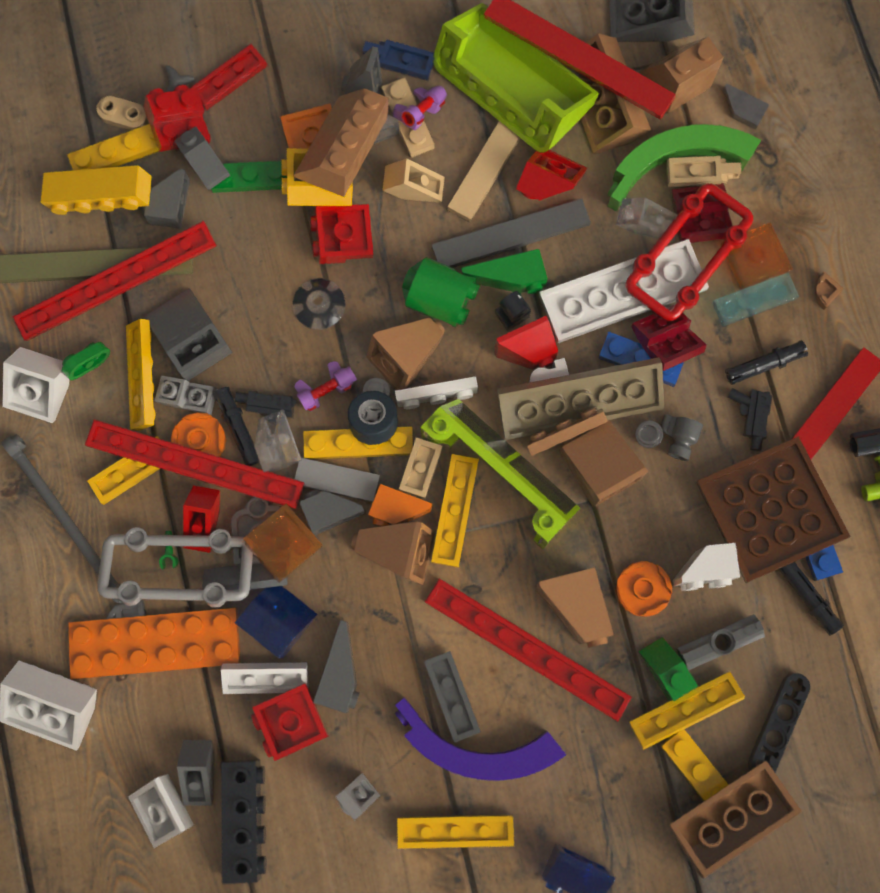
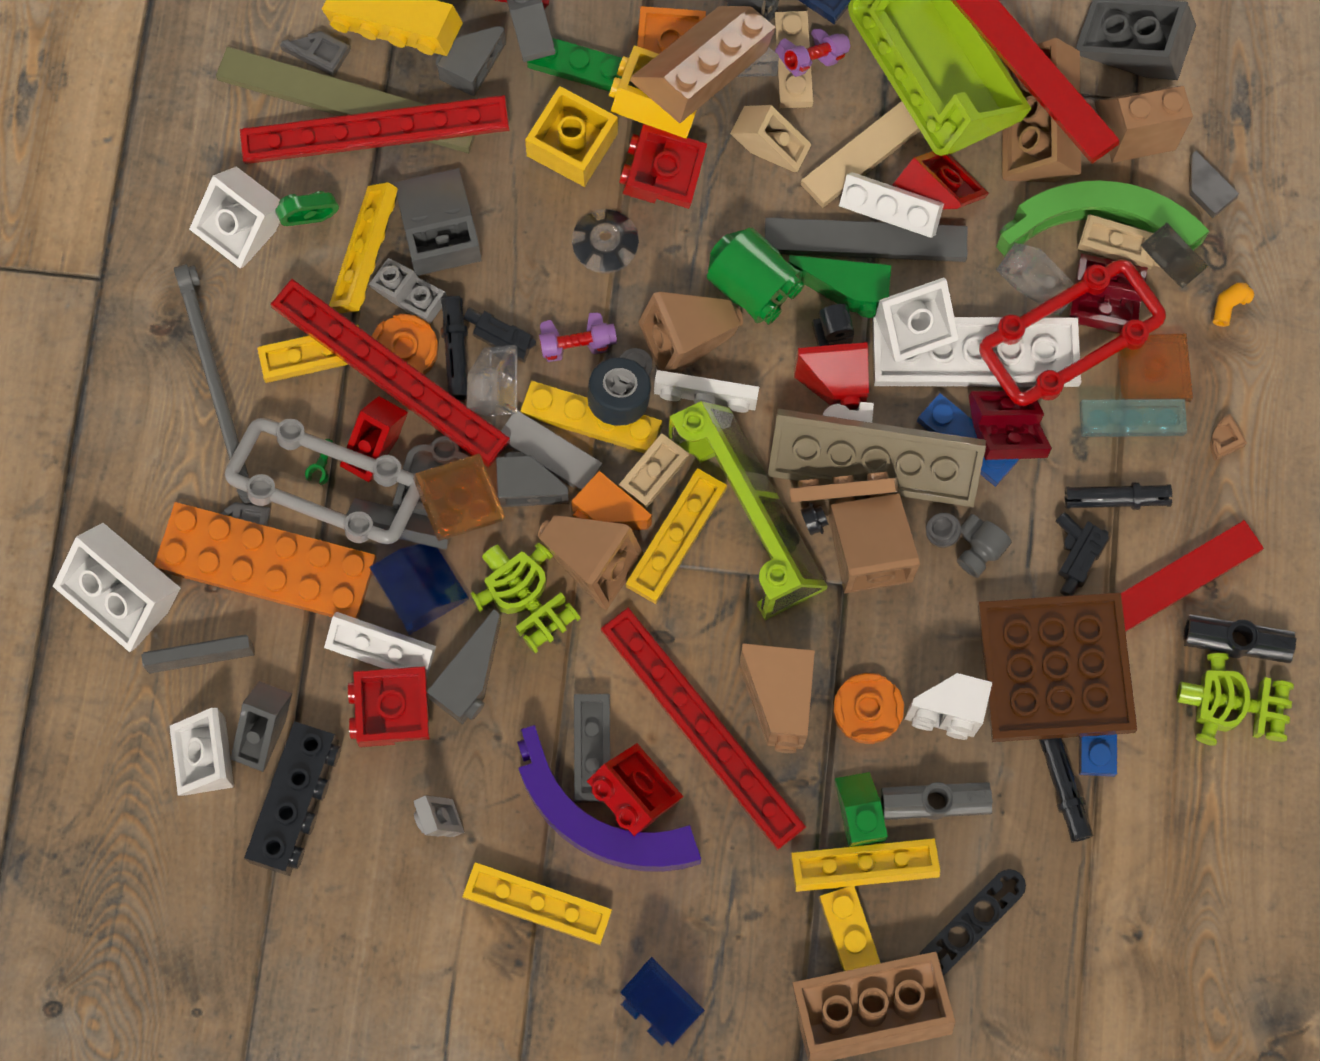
camera: 15 degrees right, 5 degrees down
(51, 235) = (319, 51): none -> flat silver tile
(128, 735) = (197, 654): none -> dark grey tile
(265, 234) = (571, 136): none -> yellow brick
(336, 582) = (508, 574): none -> lime piece
(497, 719) = (634, 789): none -> red plate
(521, 202) = (891, 204): none -> white plate
(552, 460) = (814, 518): none -> black plate
(574, 284) = (917, 320): none -> white slope
(742, 167) = (1174, 255): none -> clear smoke slope
(790, 185) = (1229, 298): none -> light orange arm

